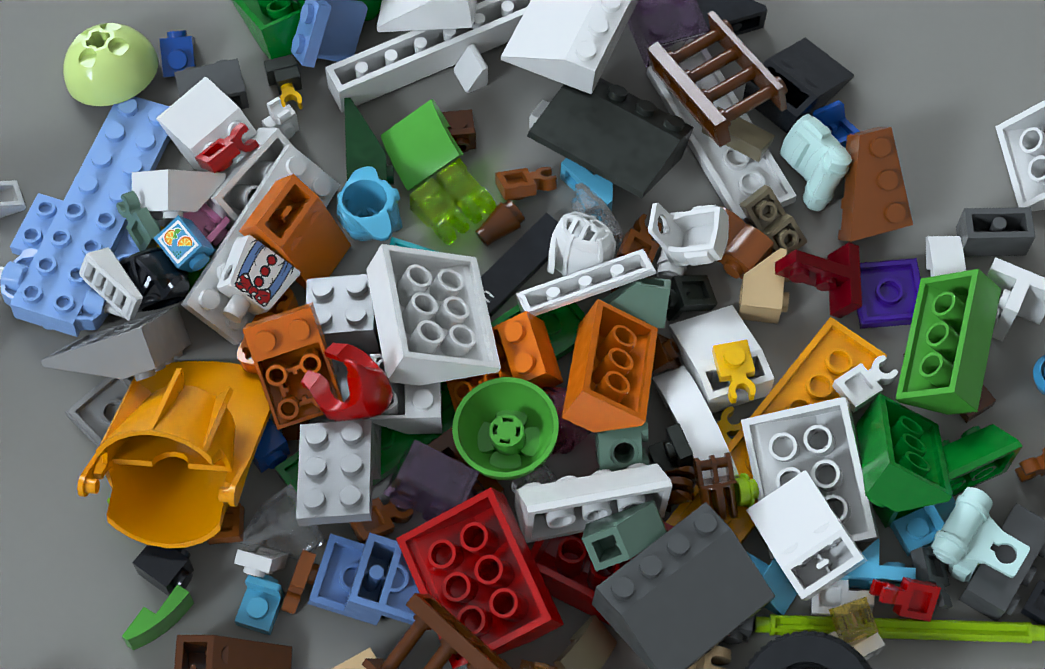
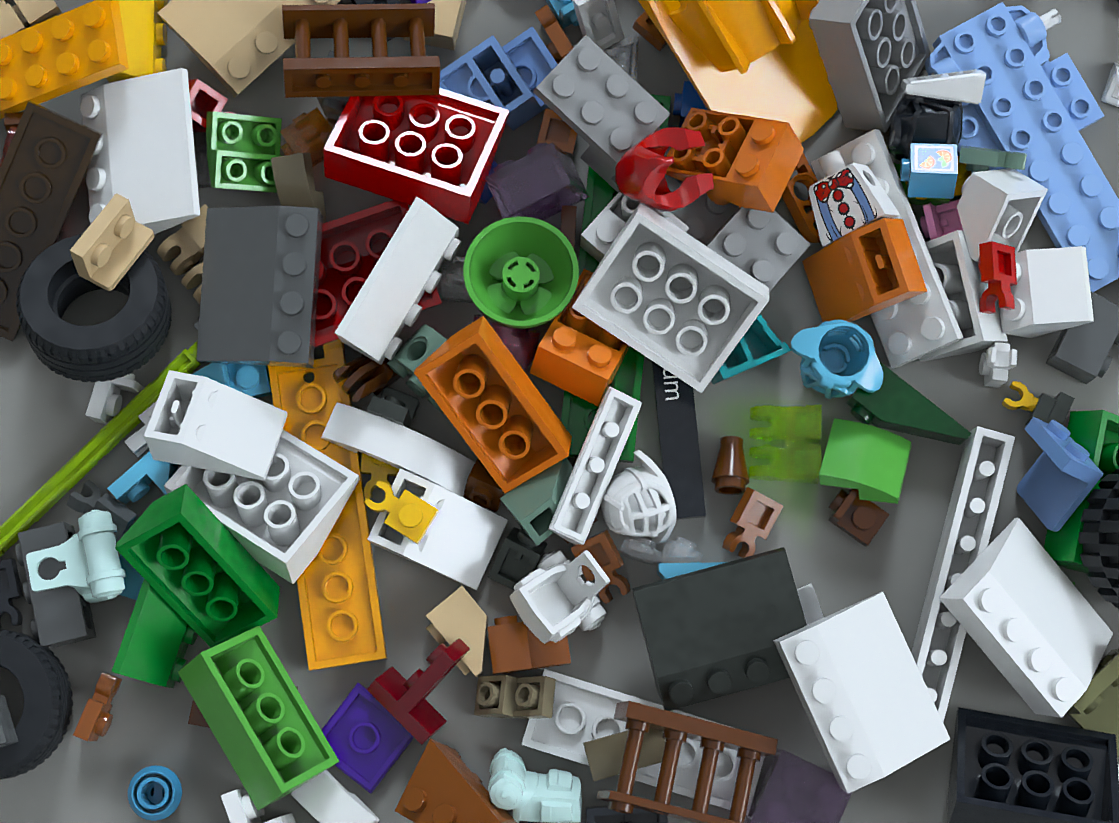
camera: 135 degrees right, 15 degrees up
(471, 70) = (909, 582): white slope -> none
(623, 534) = (341, 271): sand green slope -> none
(716, 484) = (327, 404): reddish brown arm -> none
(746, 490) = (304, 426): lime plate -> none
(853, 620) = (122, 403): clear yellow tile -> none
(862, 385) = (298, 610): white plate -> none
(912, 599) = (98, 472): red plate -> none

